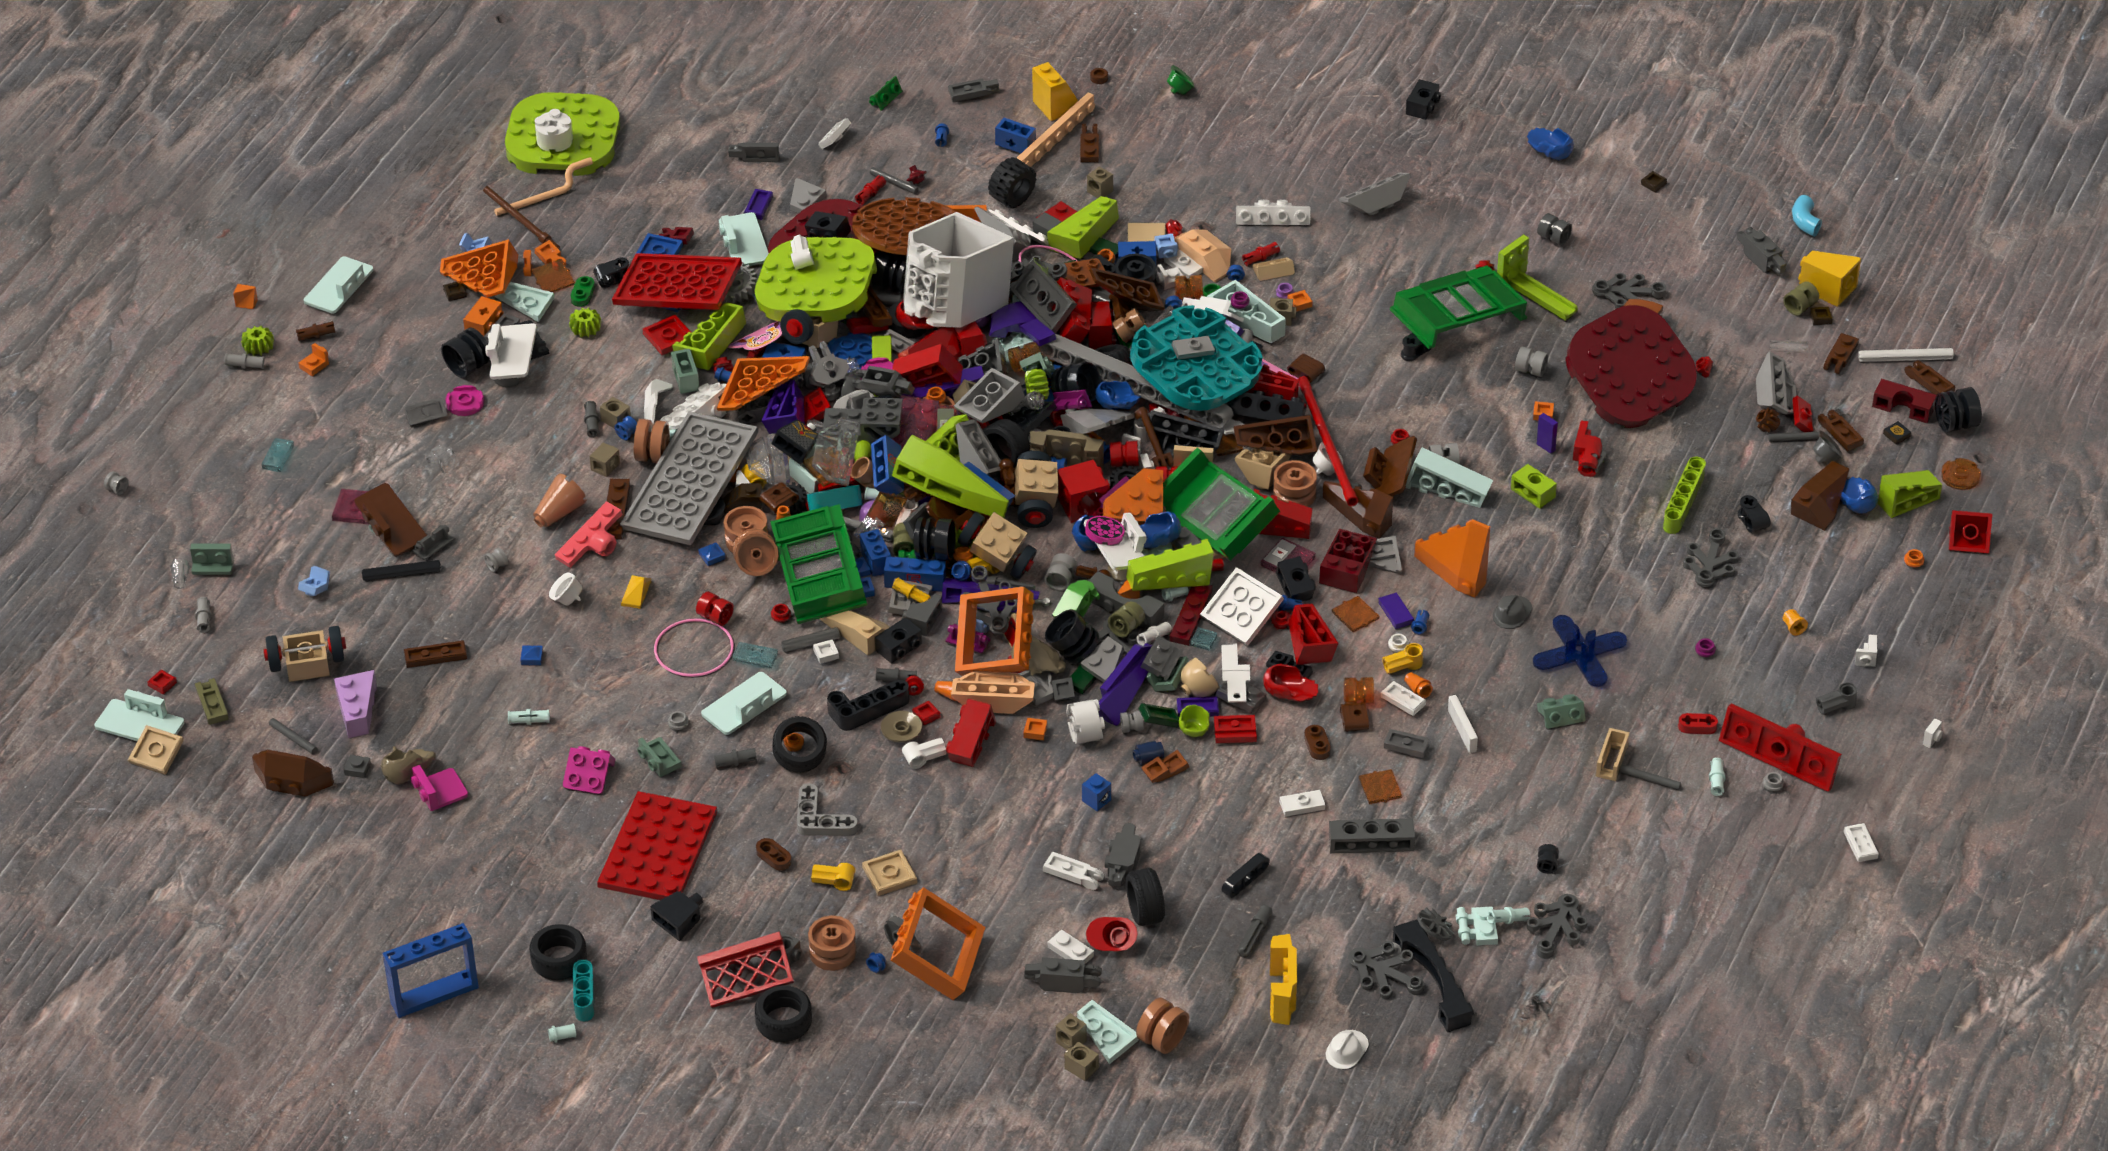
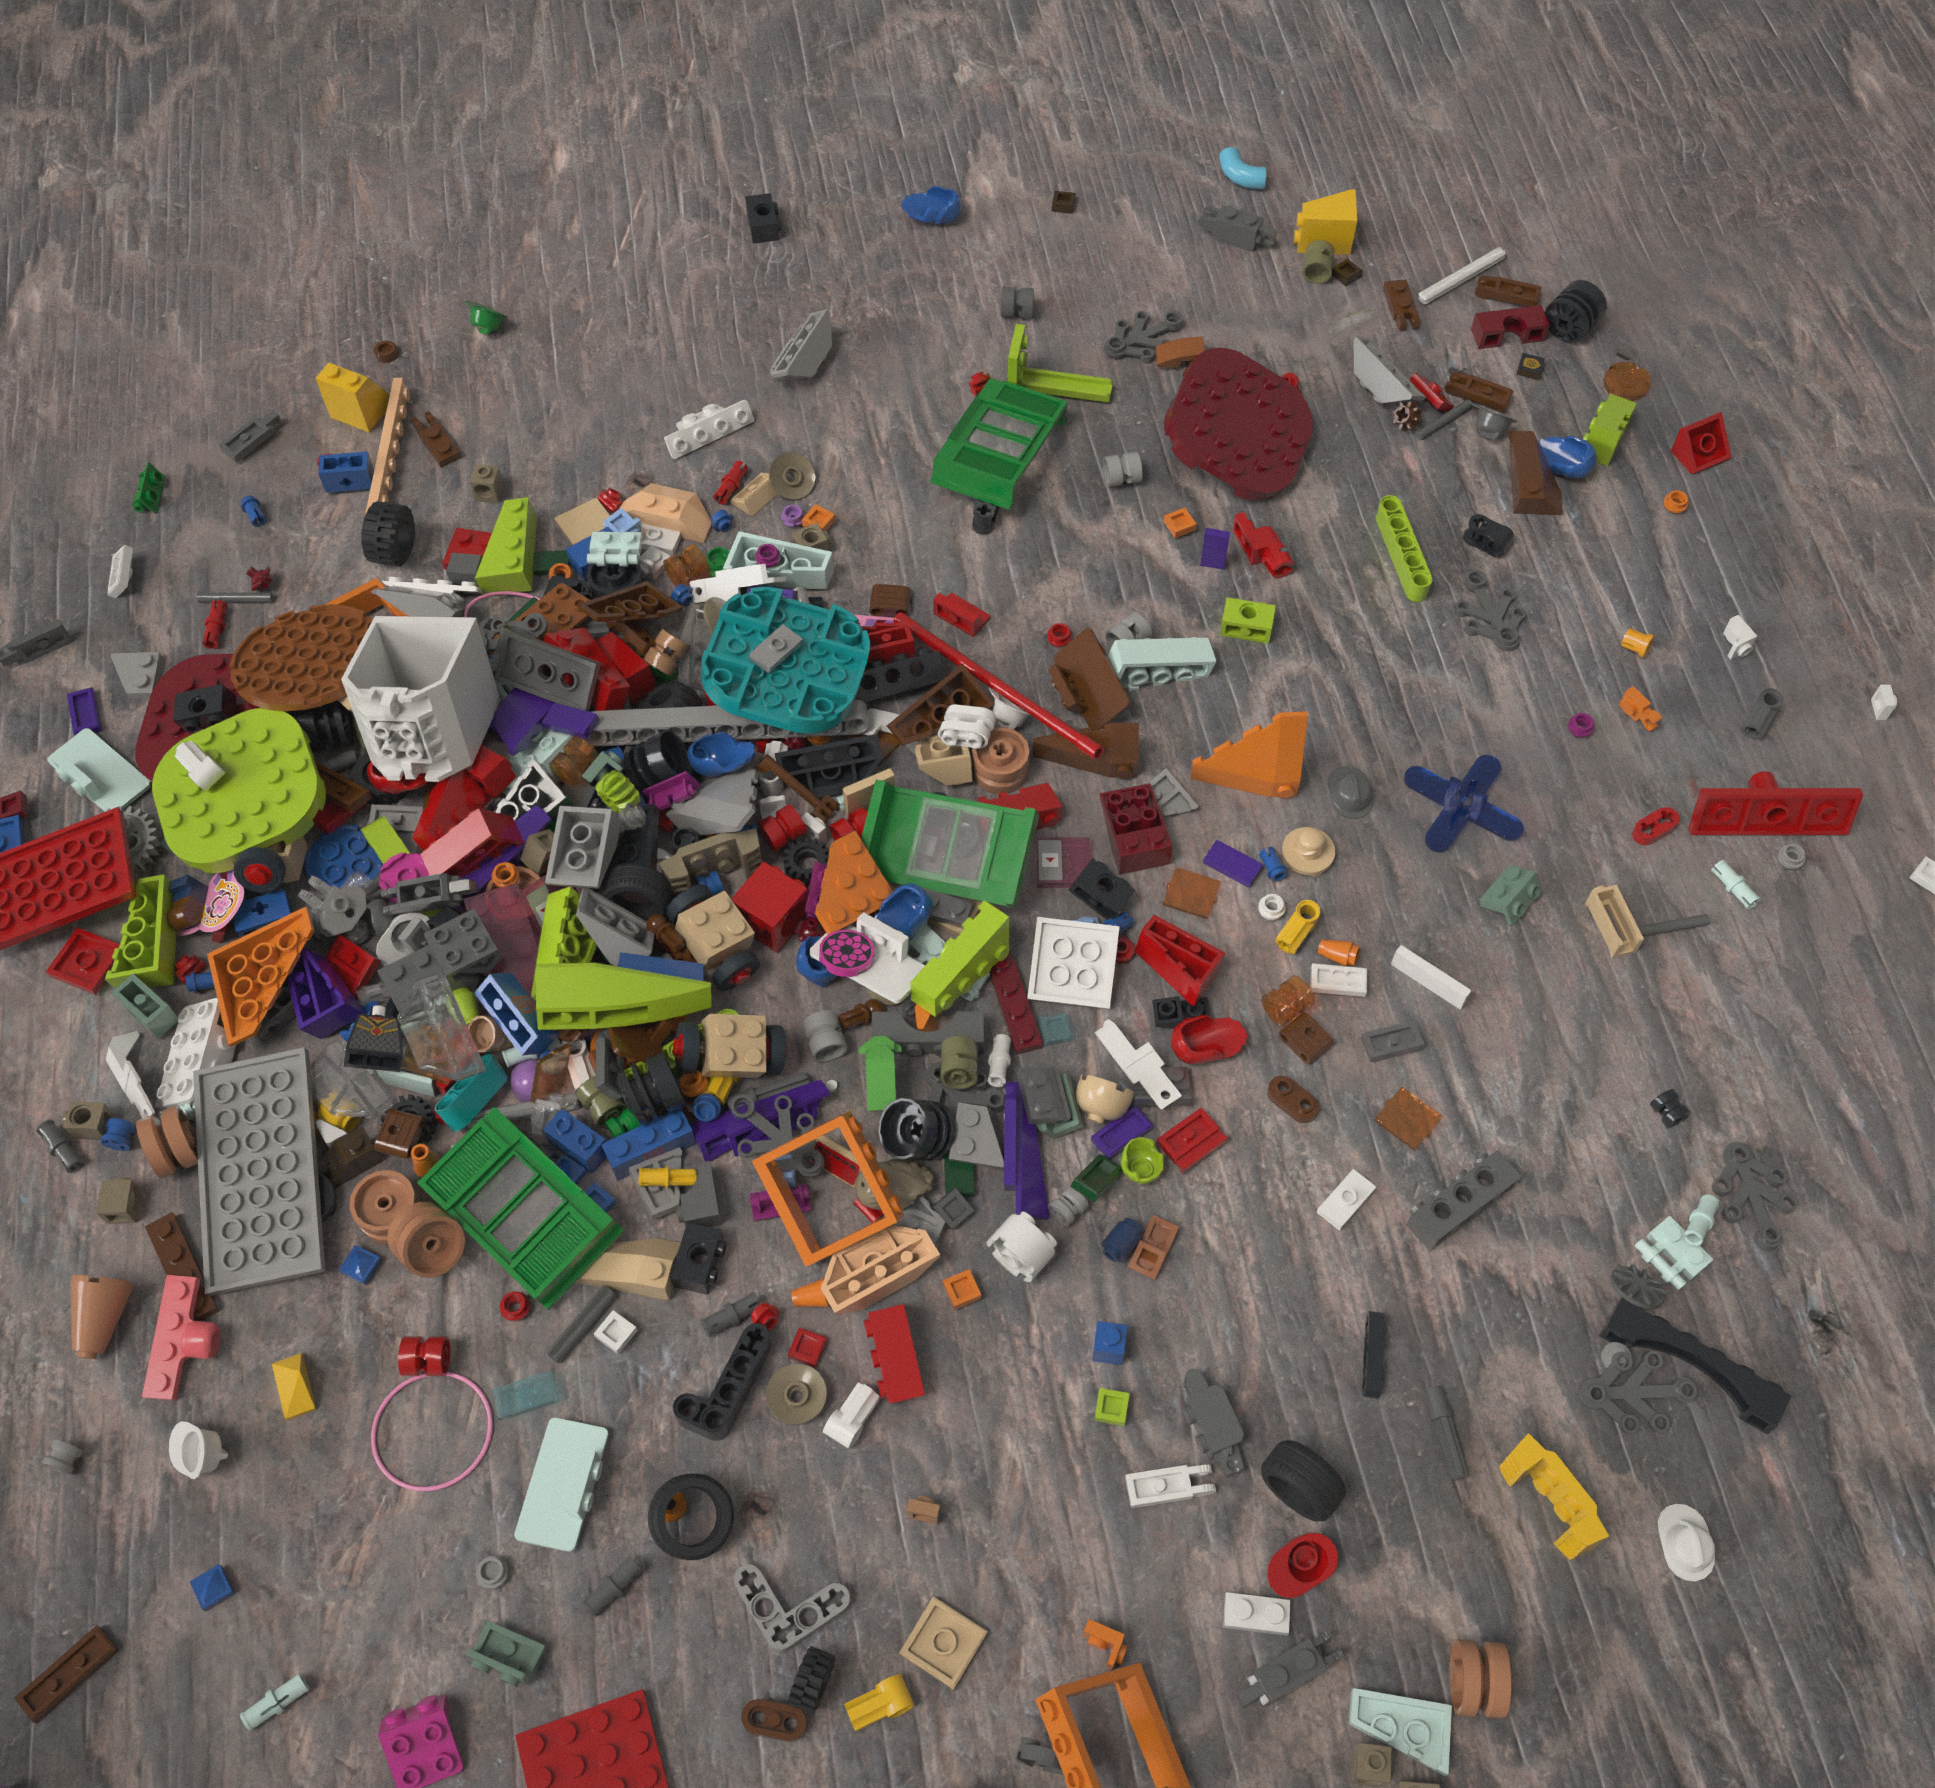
camera: 35 degrees left, 15 degrees up
(746, 329) = (186, 903): none -> leg
(806, 843) = (811, 1680): none -> black tyre
(926, 810) = (923, 1510): none -> medium nougat plate
(976, 910) = (1102, 1637): none -> orange bracket
(1072, 821) = (1111, 1406): none -> lime plate
(1146, 252) = (614, 548): none -> light aqua plate
(1282, 450) = (967, 726): none -> white brick
(1307, 258) = (801, 471): none -> dark tan dish
(1346, 396) = (960, 613): none -> red panel
(1450, 626) = (1308, 851): none -> tan plate
(1752, 653) = (1638, 708): none -> orange plate

